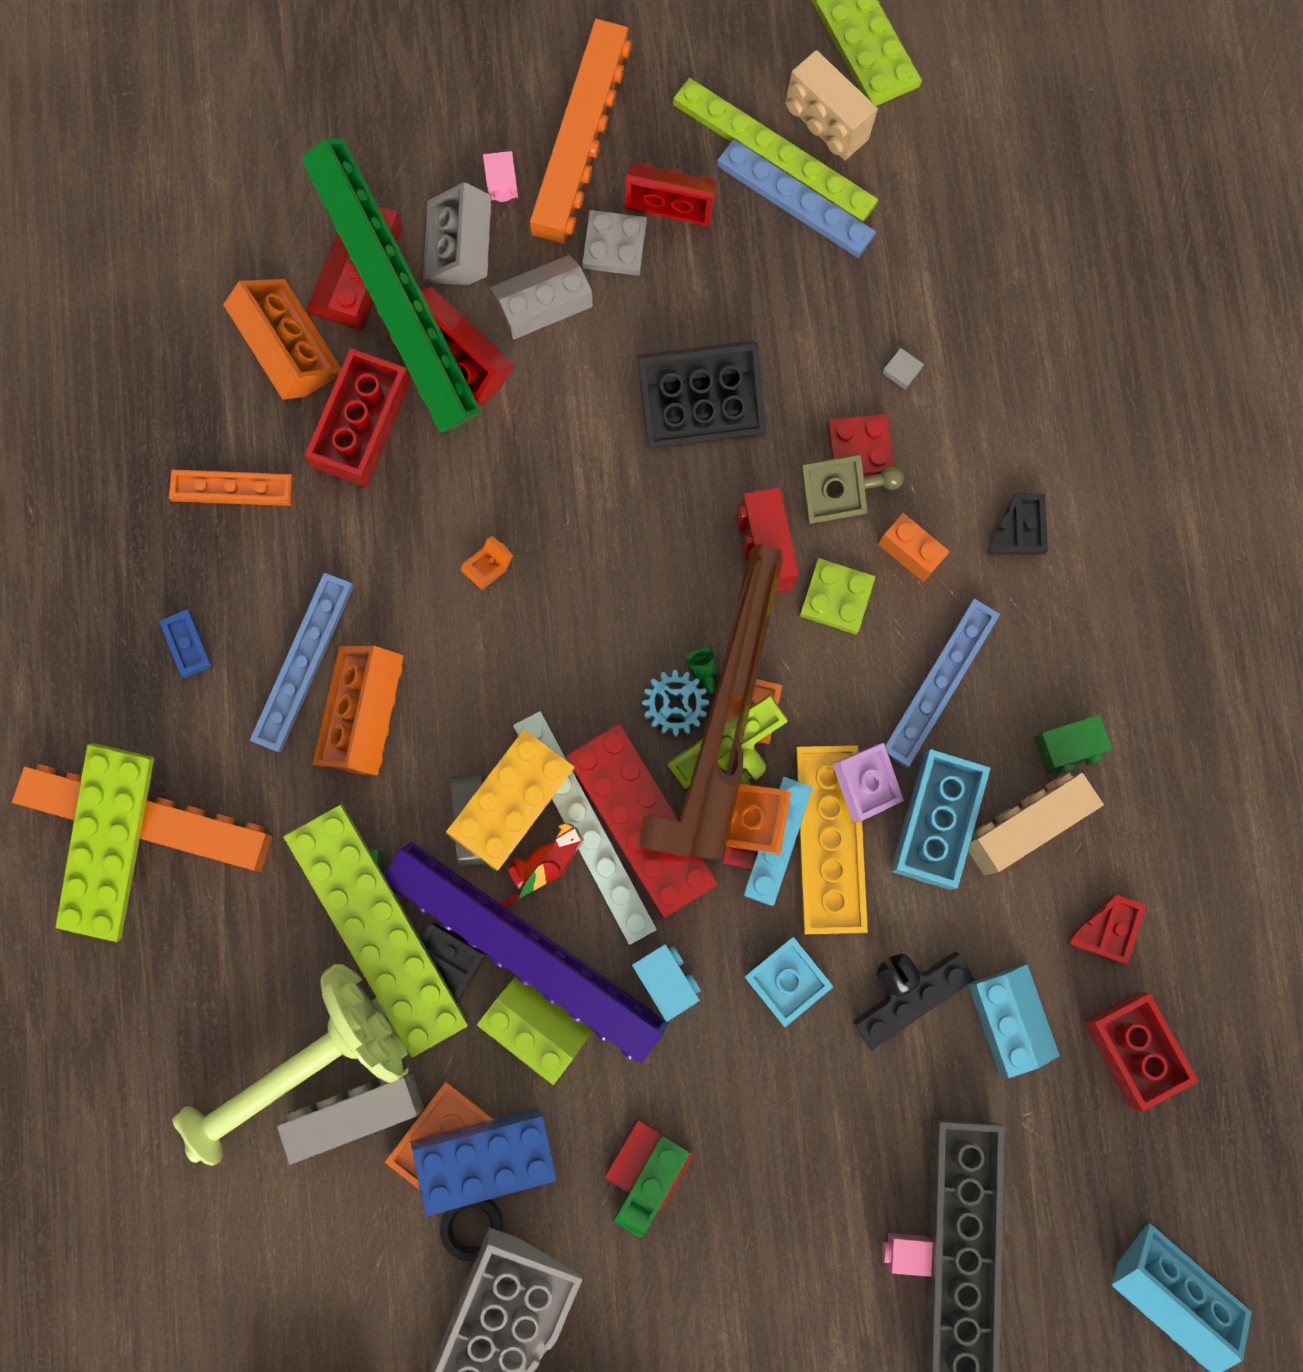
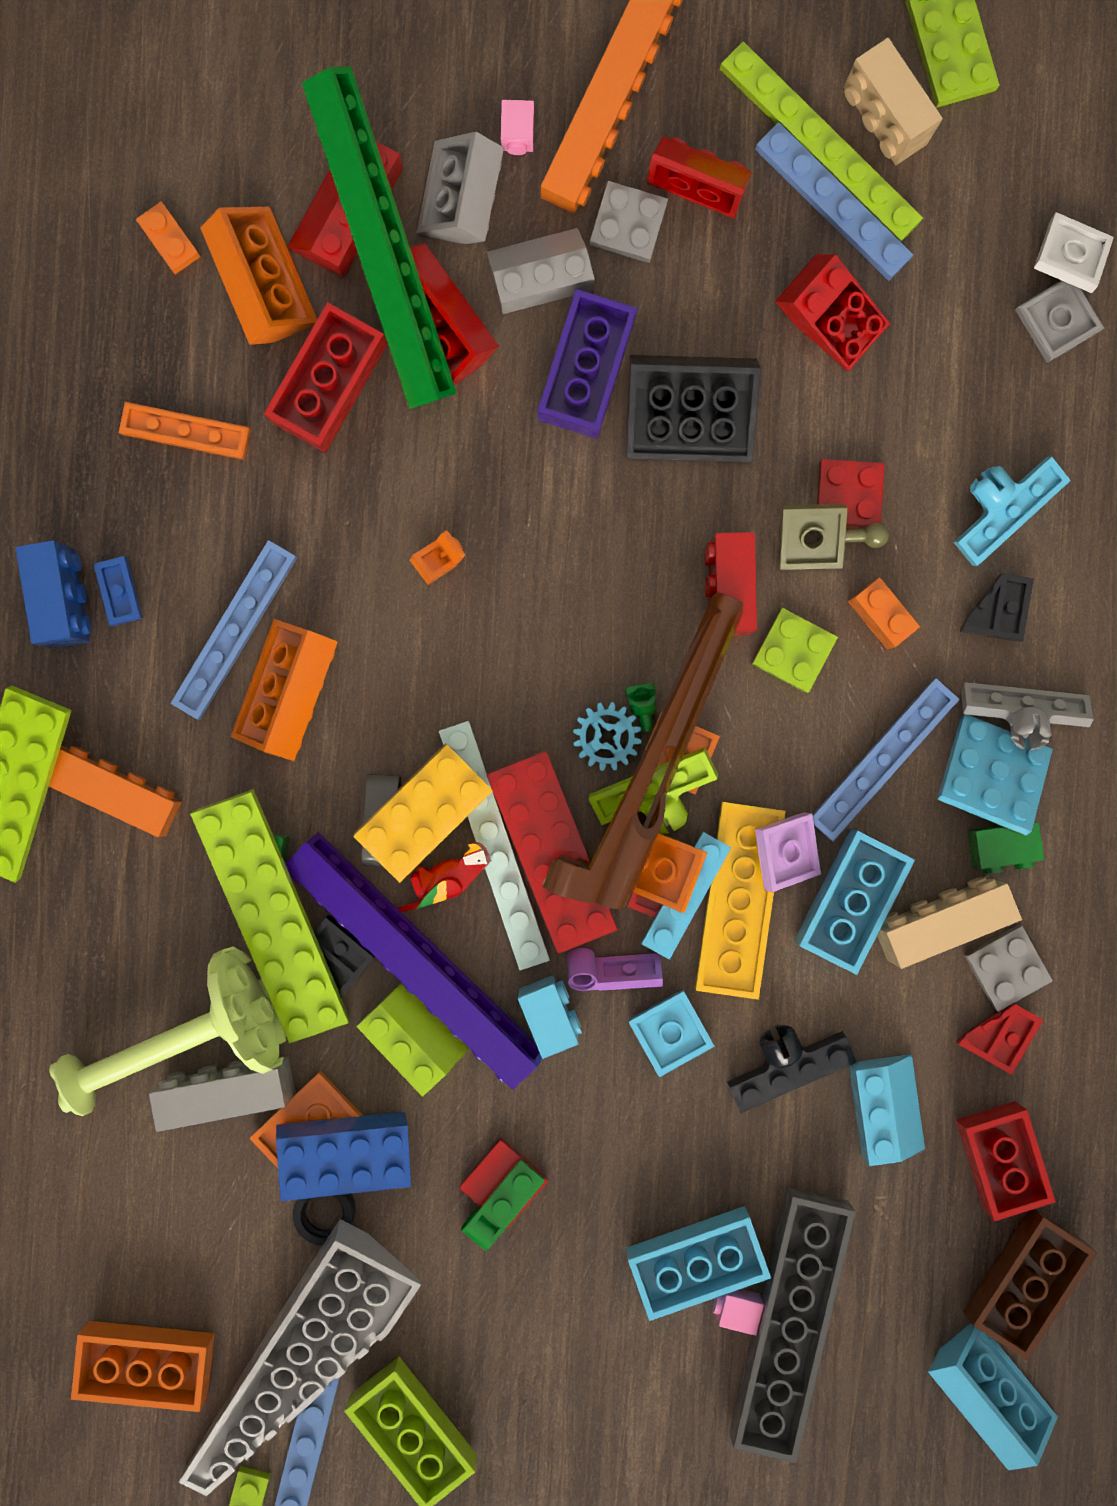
camera: 20 degrees right, 10 degrees up
(124, 654) = (53, 594): none -> blue brick
(194, 319) = (168, 237): none -> orange plate
(597, 368) = (586, 363): none -> dark purple brick
(720, 931) = (612, 972): none -> medium lavender plate
(813, 288) = (833, 310): none -> red slope
(858, 1211) = (697, 1263): none -> medium azure brick
(903, 368) = (912, 414): light grey tile -> none
(1006, 434) = (1007, 506): none -> medium azure plate
(1017, 266) = (1059, 319): none -> light grey tile
(1018, 207) = (1073, 252): none -> white plate
(1049, 677) = (994, 775): none -> medium azure plate
(1065, 614) = (1027, 710): none -> light grey plate
(1101, 862) = (1008, 968): none -> light grey plate
(1192, 1172) = (1029, 1283): none -> reddish brown brick

